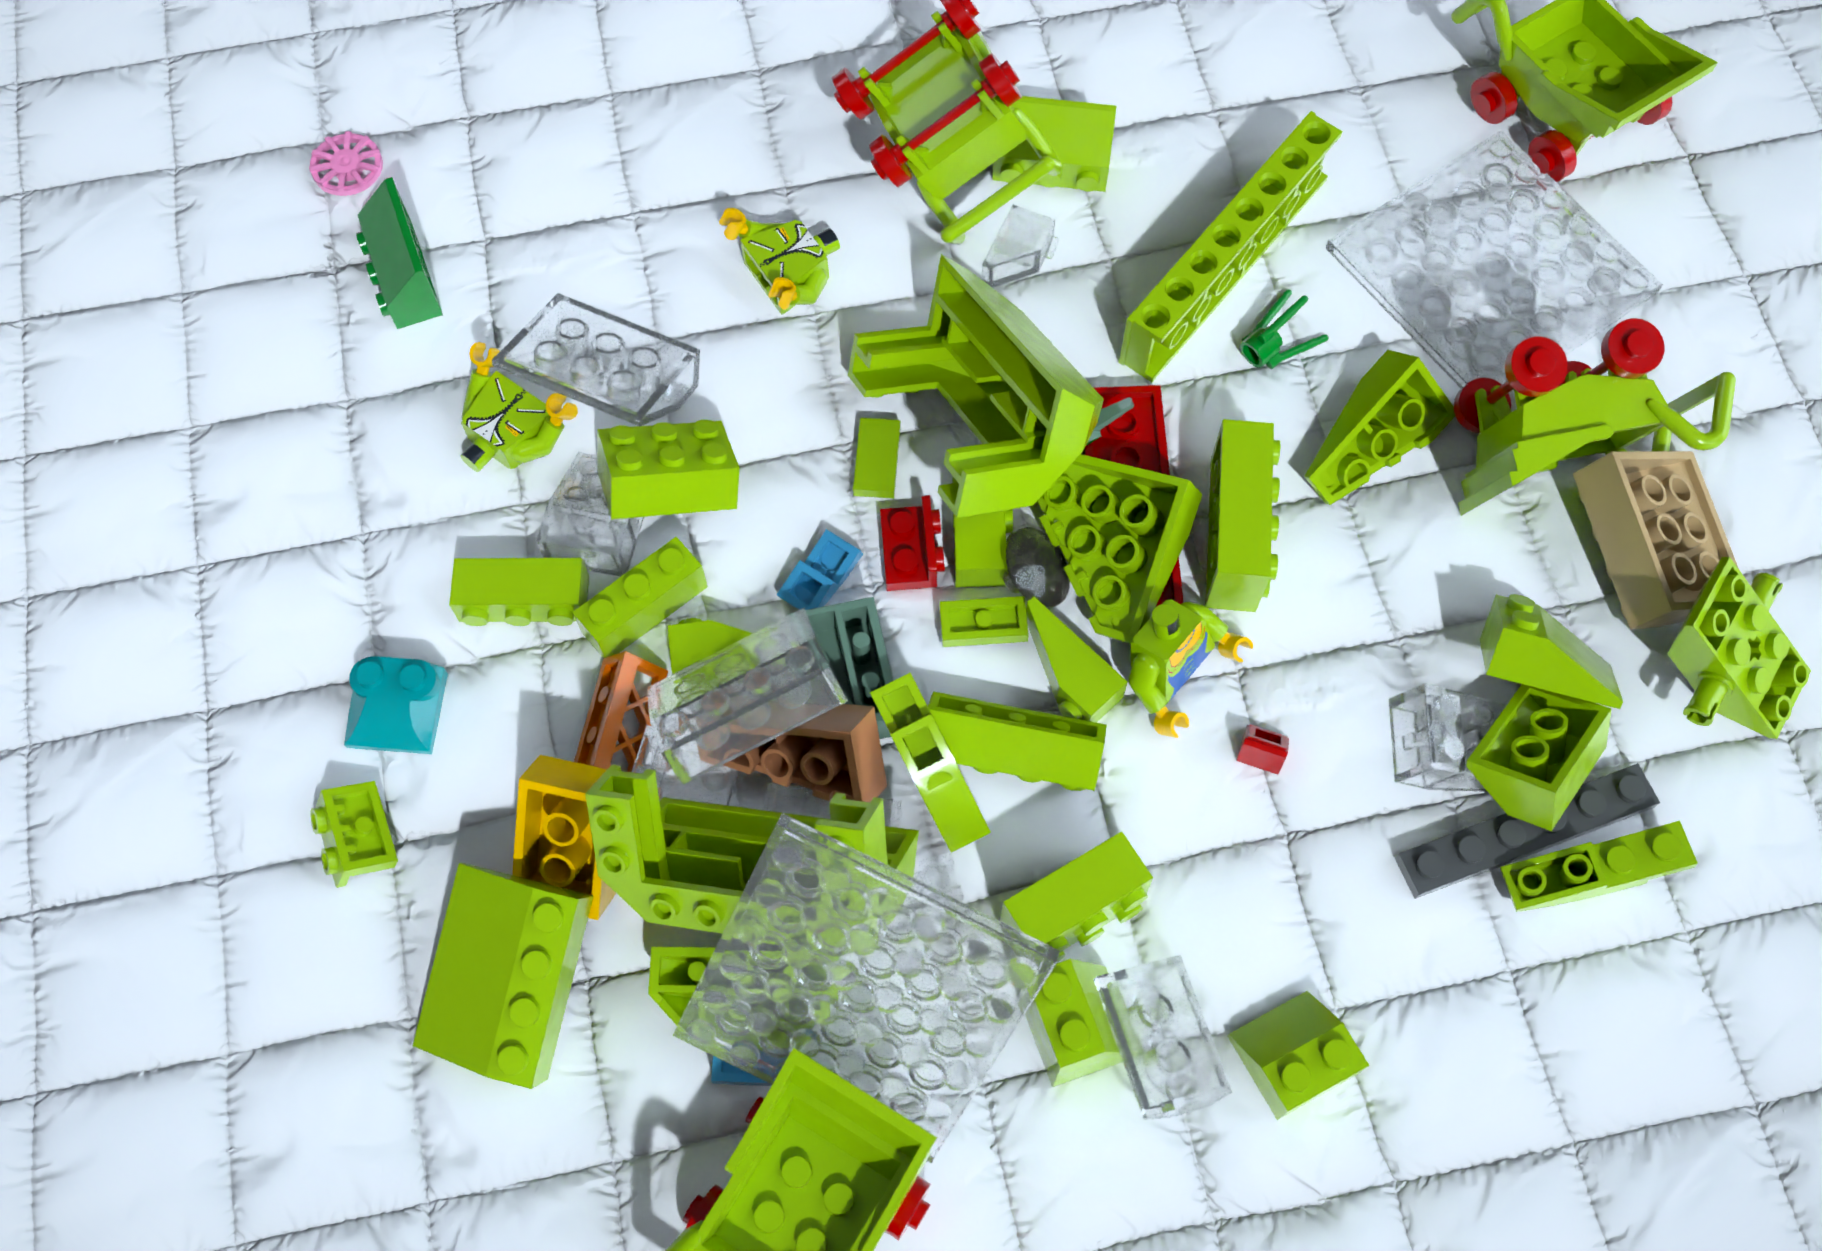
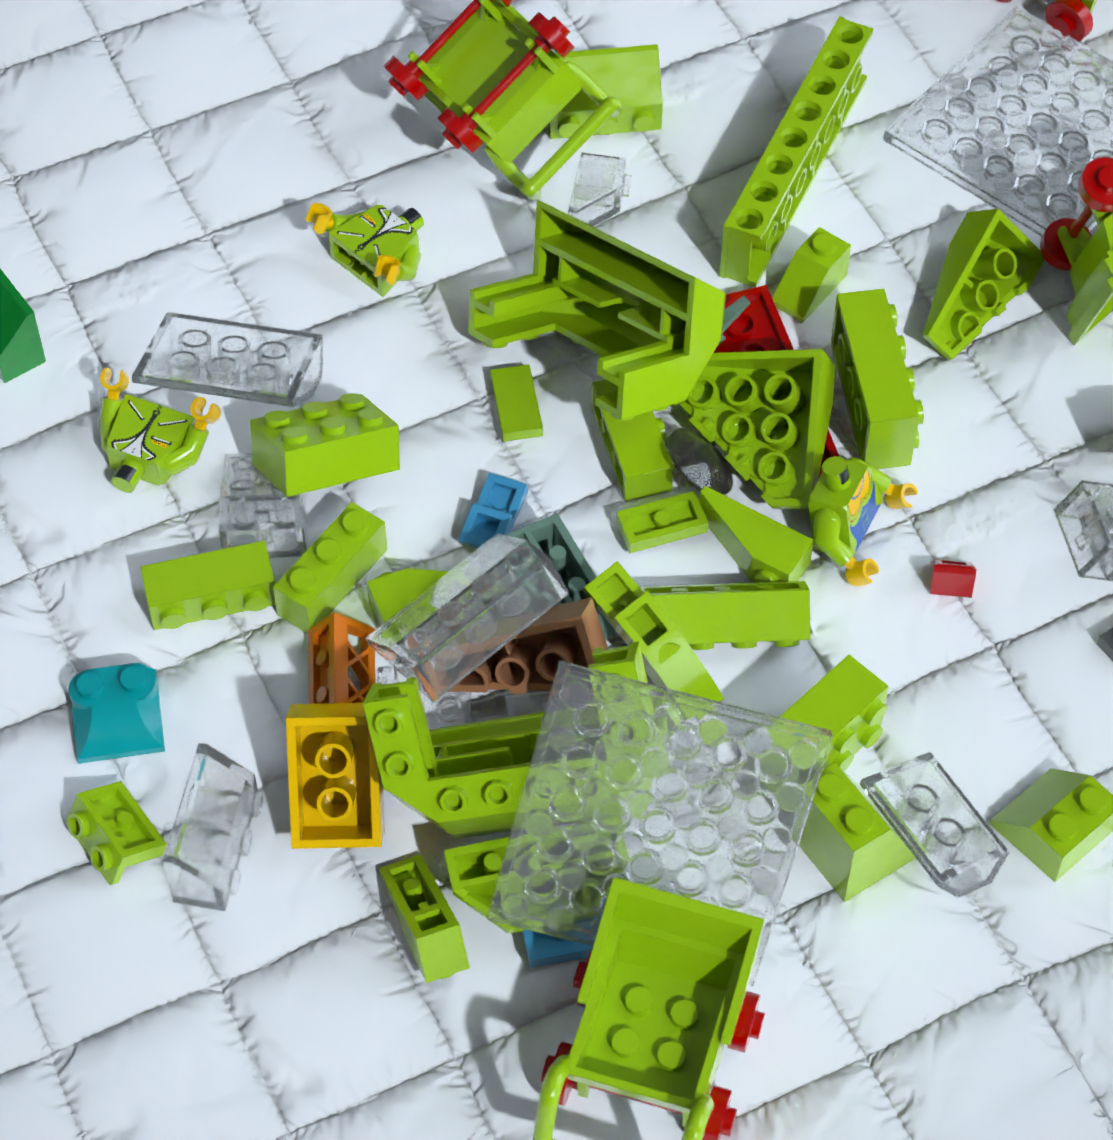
camera: 15 degrees left, 10 degrees down
(422, 868) = (211, 830): none -> clear slope
(502, 975) = (303, 909): lime slope -> none
(621, 1005) = (425, 918): none -> lime slope
(909, 546) = (574, 471): red bracket -> none
(1210, 383) = (812, 274): none -> lime slope
(1264, 341) = (854, 228): green plant -> none

